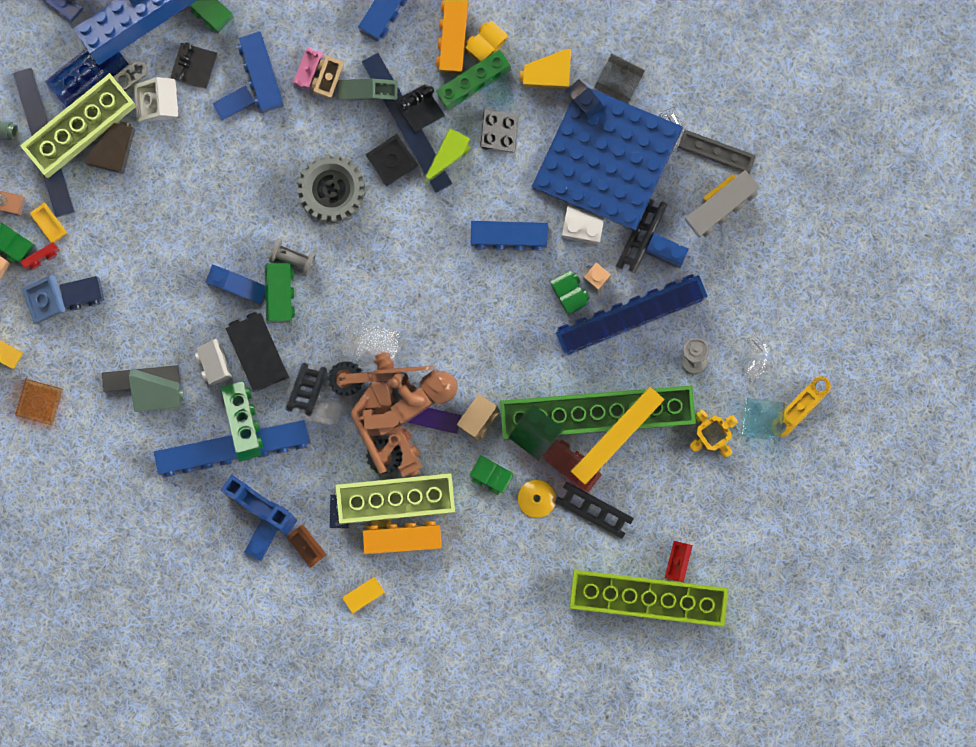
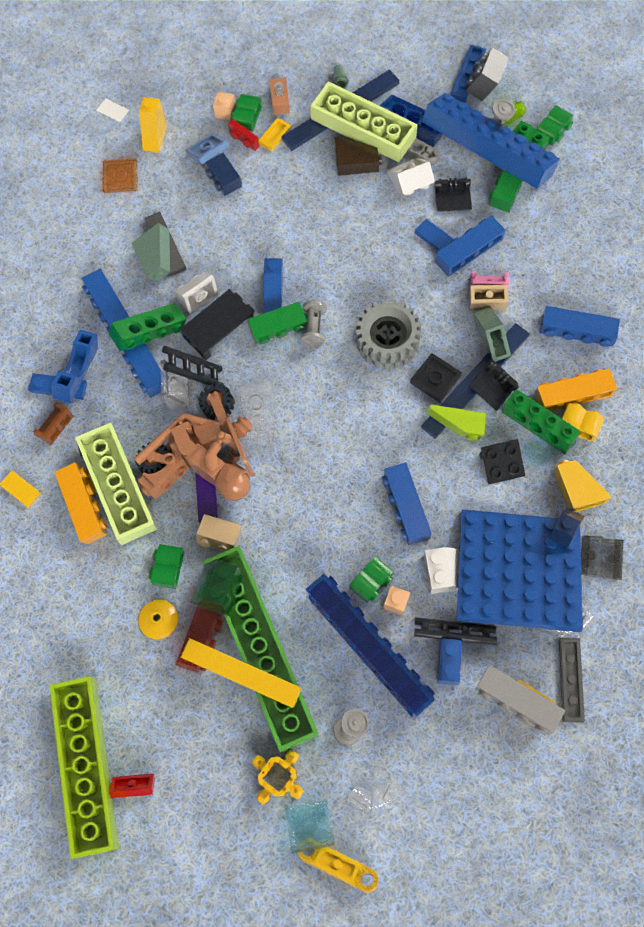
camera: 75 degrees right, 15 degrees down
(605, 509) = (164, 689): black bar -> none

